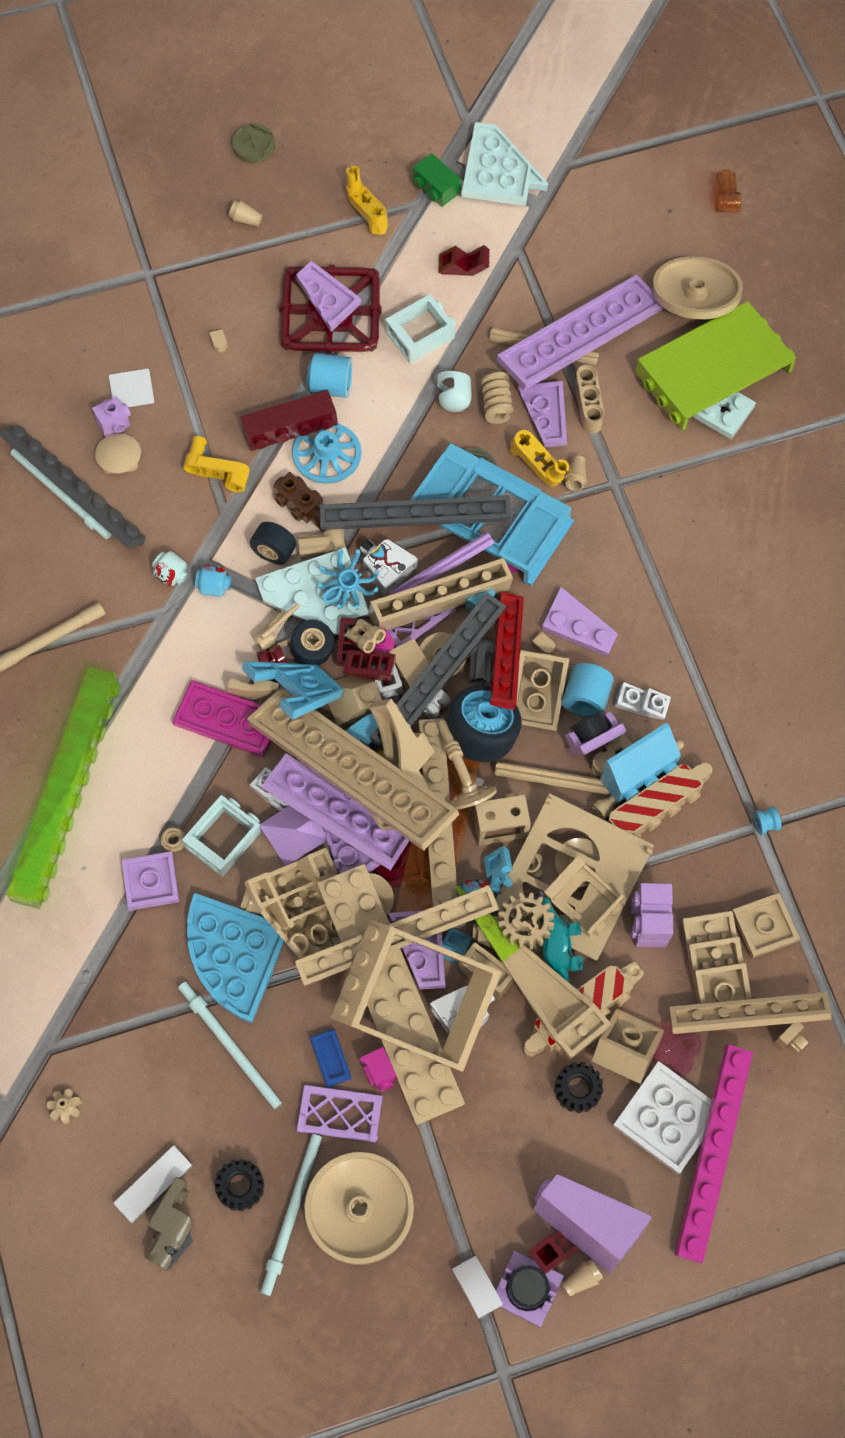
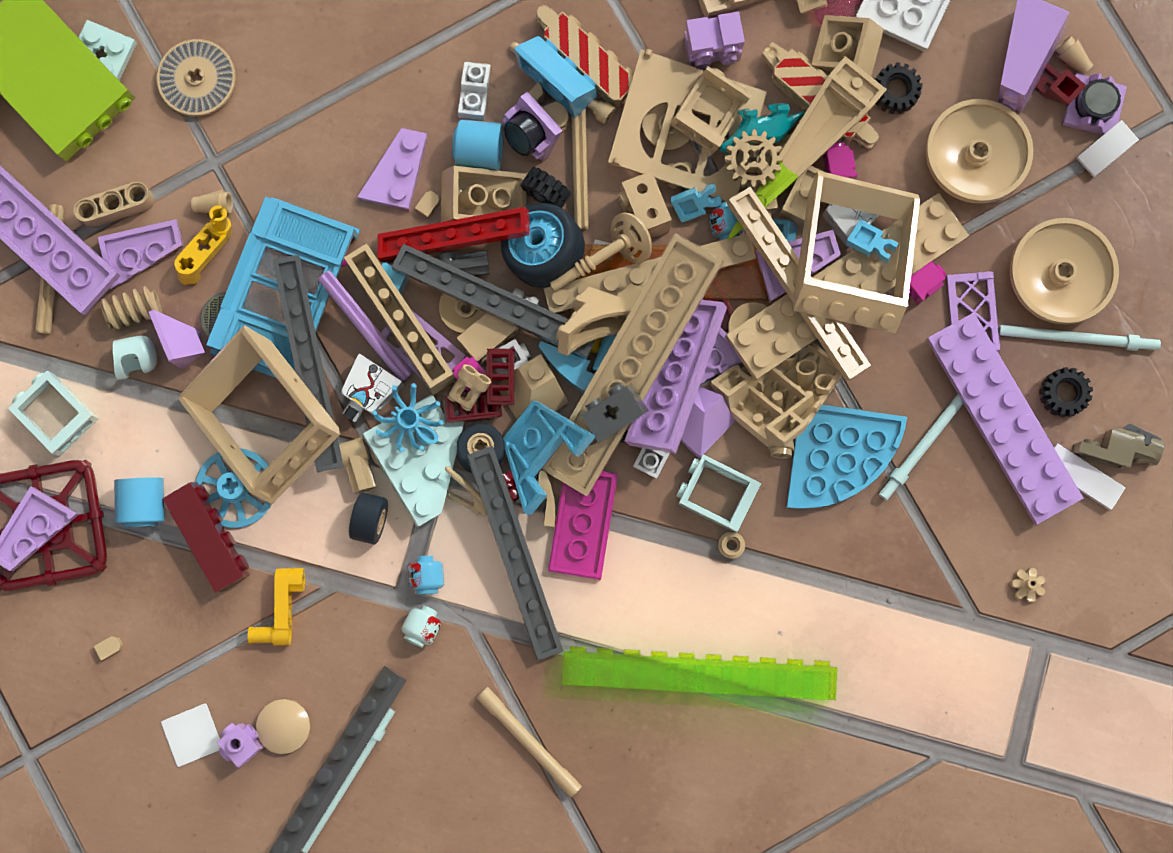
camera: 100 degrees left, 15 degrees up
(150, 881) = (782, 557): lavender plate -> none
(212, 649) = (514, 552): none -> dark grey plate
(226, 1115) = (1004, 419): none -> lavender plate
(291, 492) = (304, 507): reddish brown brick -> none
(310, 741) = (604, 424): none -> dark grey brick
(330, 1058) = (914, 336): blue tile -> none
(410, 439) = (222, 377): none -> tan window
(427, 1015) = (869, 239): none -> medium azure plate
(462, 421) = (178, 339): none -> lavender slope
(498, 1150) = (979, 151): none -> tan dish
(511, 1013) = (840, 161): none -> dark pink window
(535, 738) = (545, 188): none -> black tyre
(698, 495) = (190, 59): none -> piece

